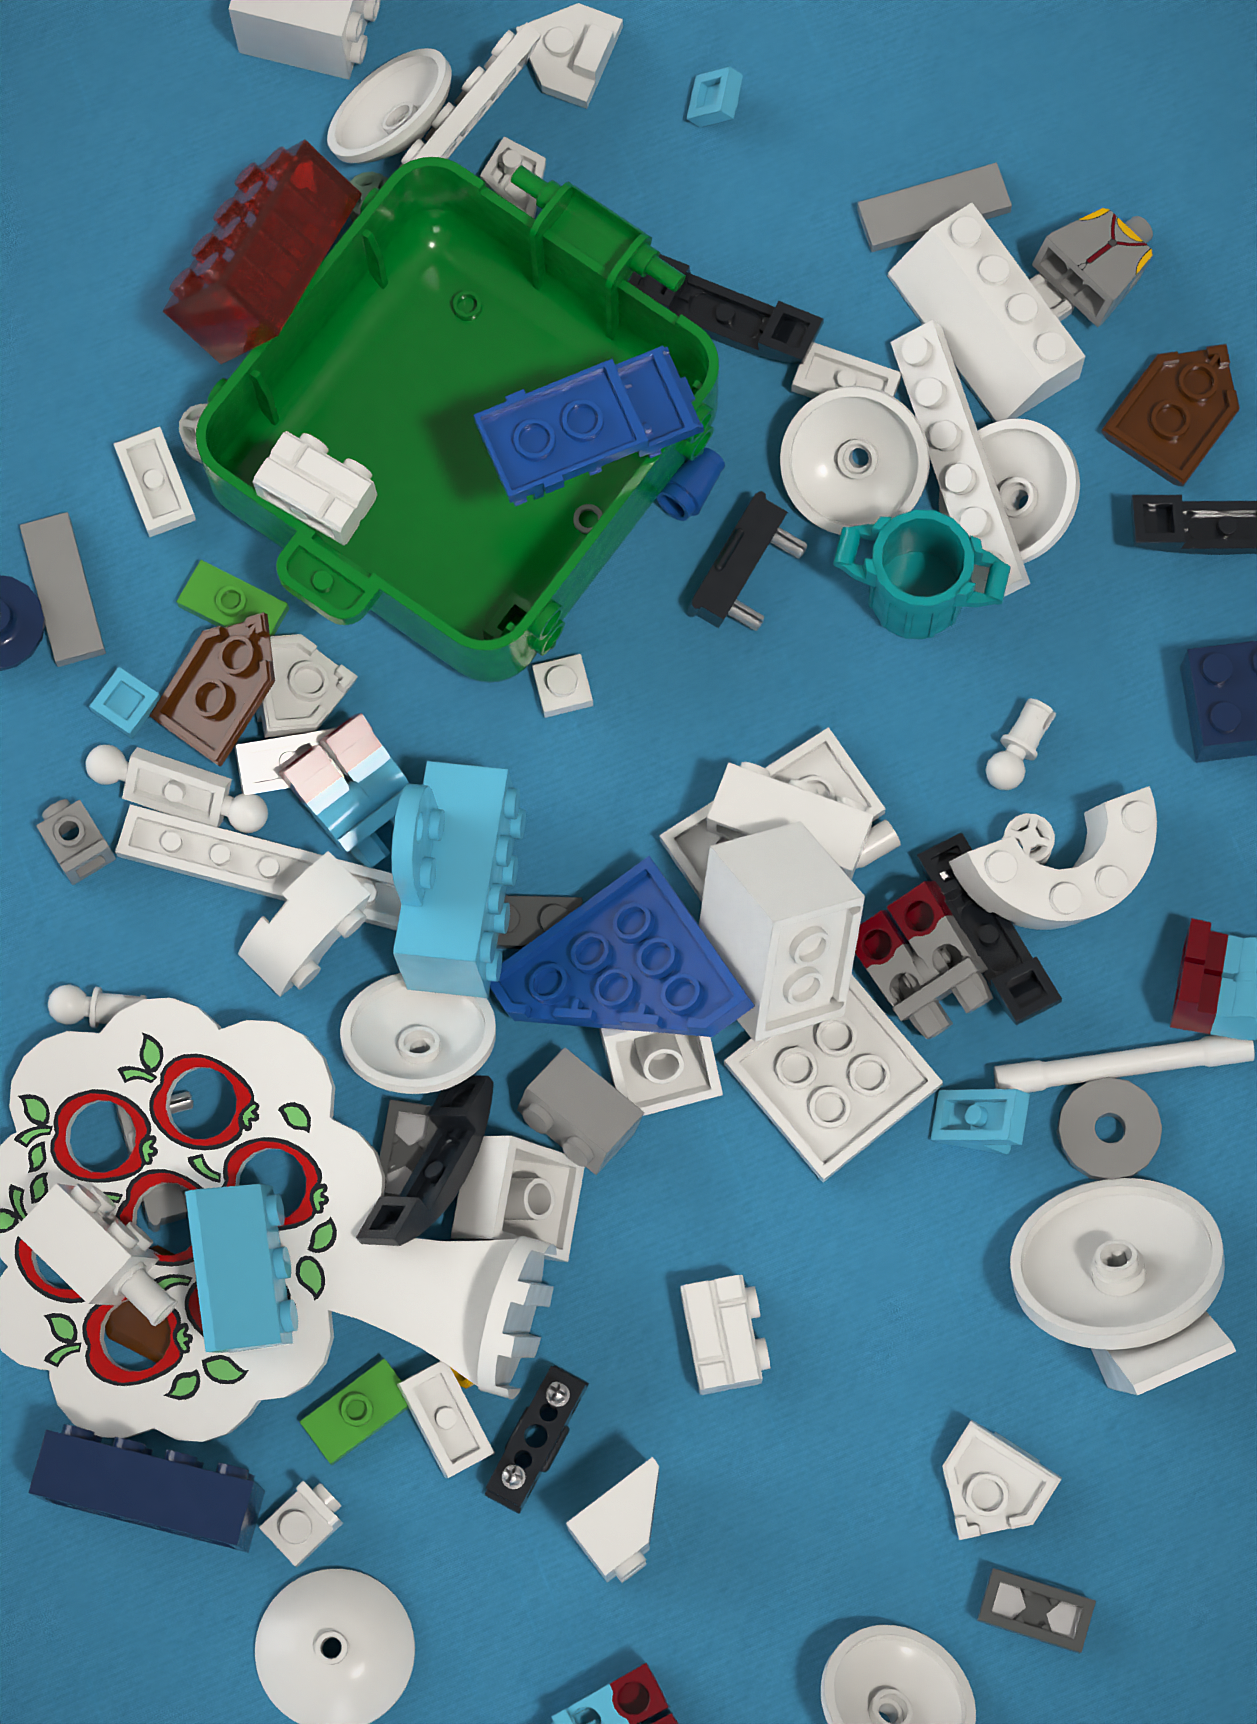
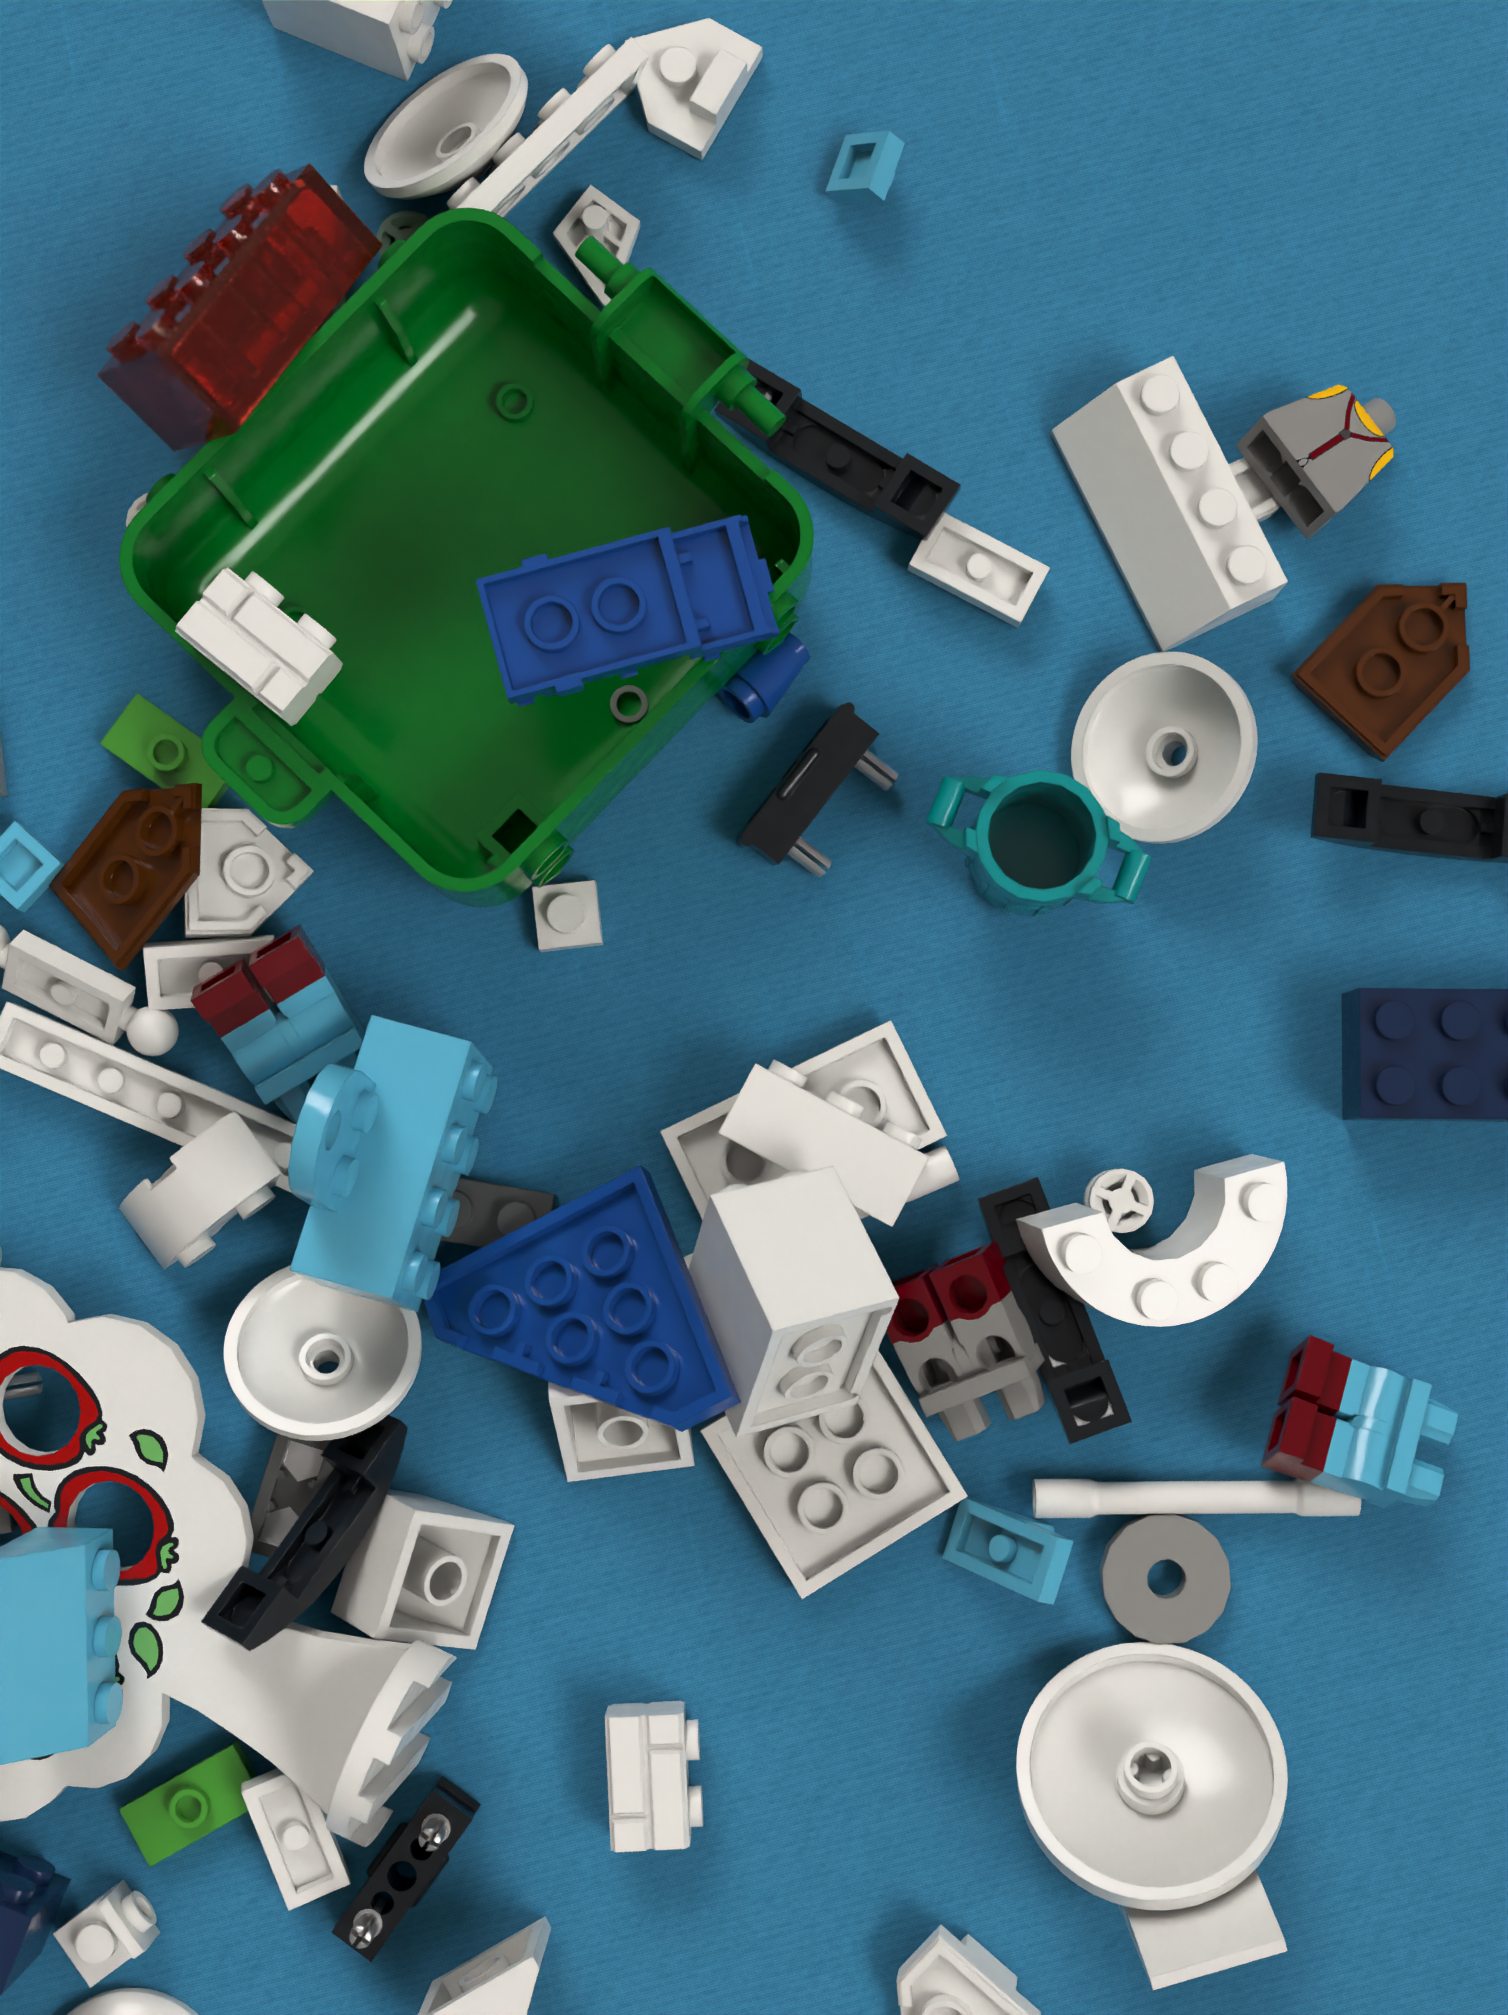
camera: 10 degrees right, 10 degrees up
(154, 481) = (91, 583): white plate -> none
(579, 1111) = (511, 1475): light grey brick -> none
(820, 464) = (950, 711): white dish -> none
(915, 210) = (1112, 349): light grey tile -> none
(957, 449) = (1105, 683): white plate -> none
(1006, 768) = (1106, 1101): white pin -> none

